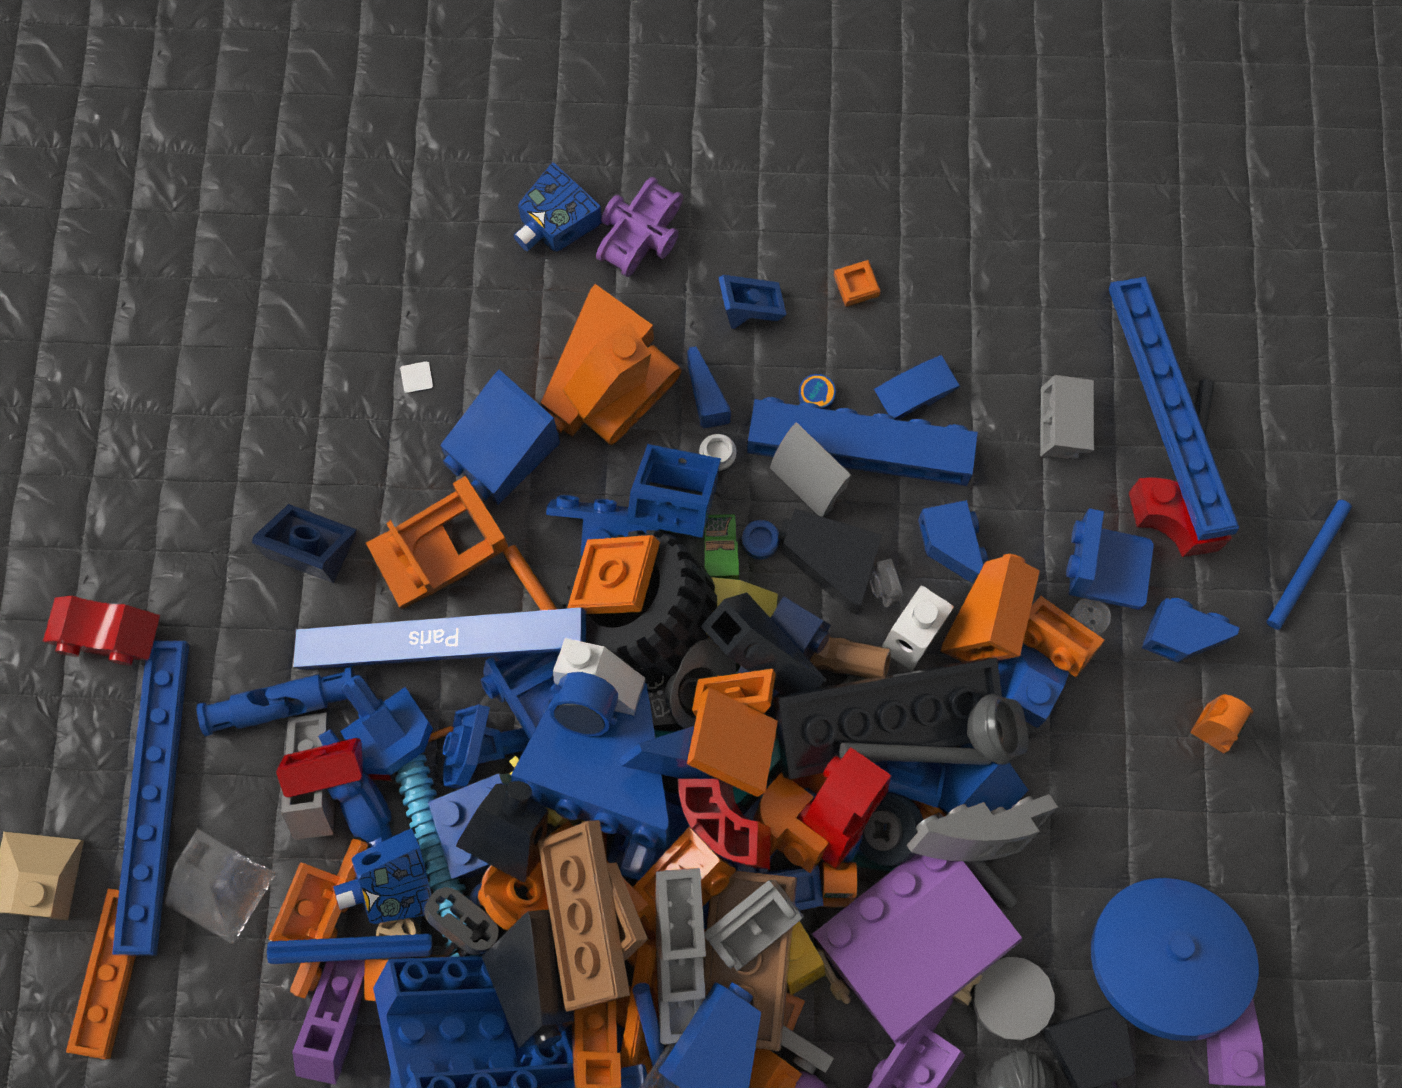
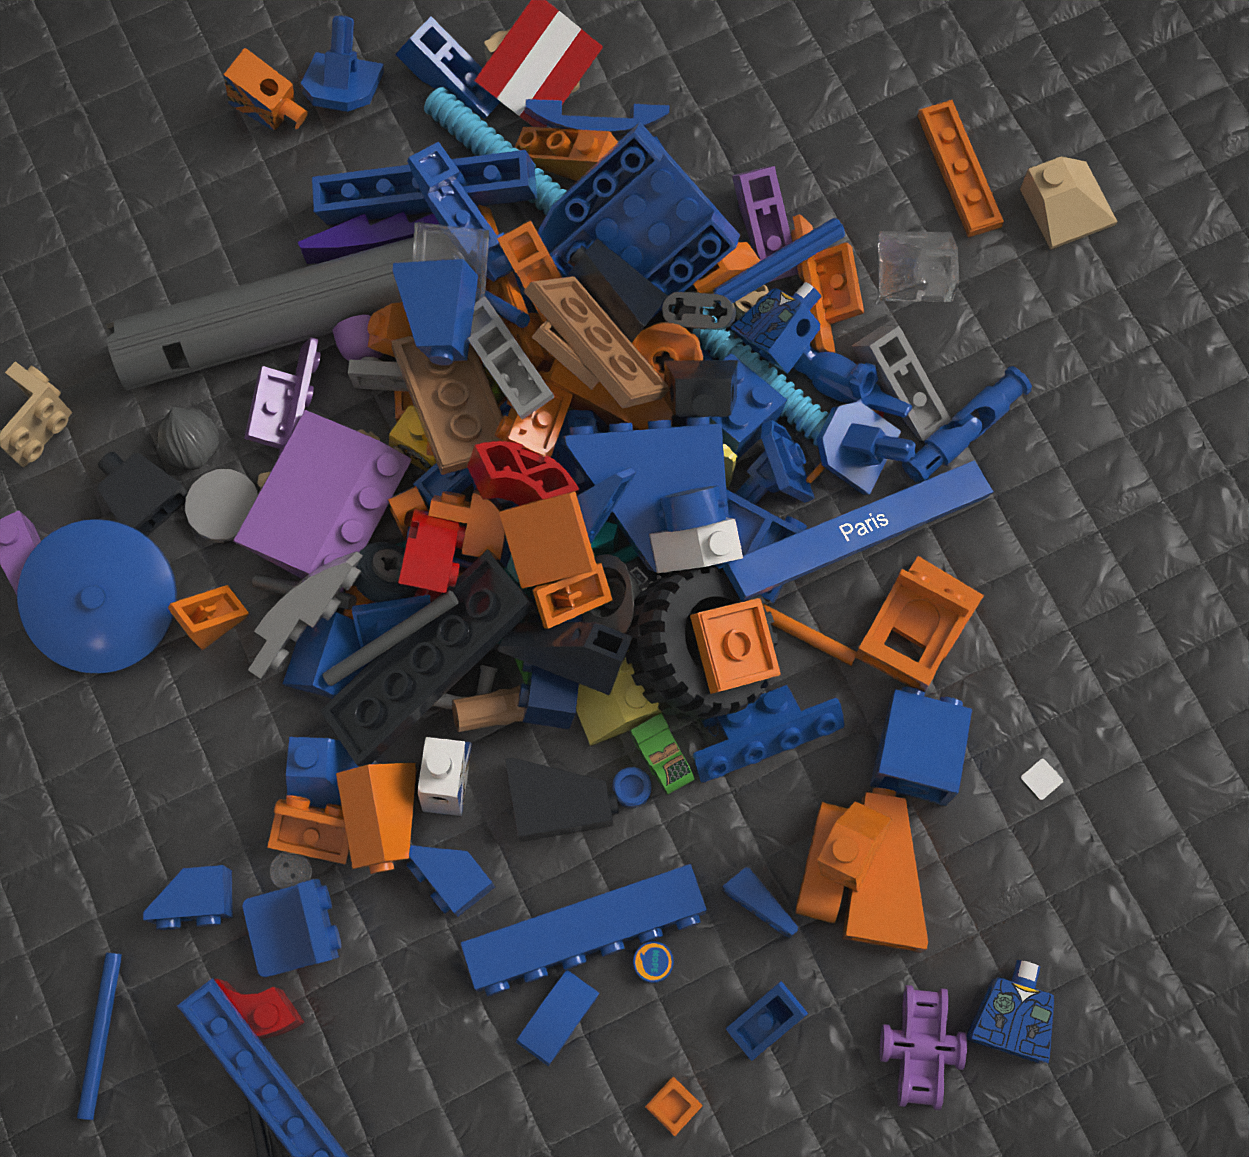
camera: 155 degrees right, 0 degrees up
(101, 629) = (1144, 406): red brick -> none
(151, 801) = (1020, 305): blue tile -> none
(305, 542) = (1036, 567): dark blue slope -> none
(321, 767) = (891, 379): red slope -> none
(670, 508) = (723, 744): blue window -> none
(720, 447) = (716, 850): white plate -> none
(753, 925) = (458, 413): light grey hinge -> none
(809, 470) = (615, 864): light grey slope -> none
(886, 583) = (494, 799): clear plate -> none
(998, 729) = (326, 699): dark grey hat -> none
(1067, 417) = (395, 1062): light grey hinge -> none
(1072, 887) = (209, 614): none -> orange slope
(1222, 722) = (129, 824): orange leg -> none

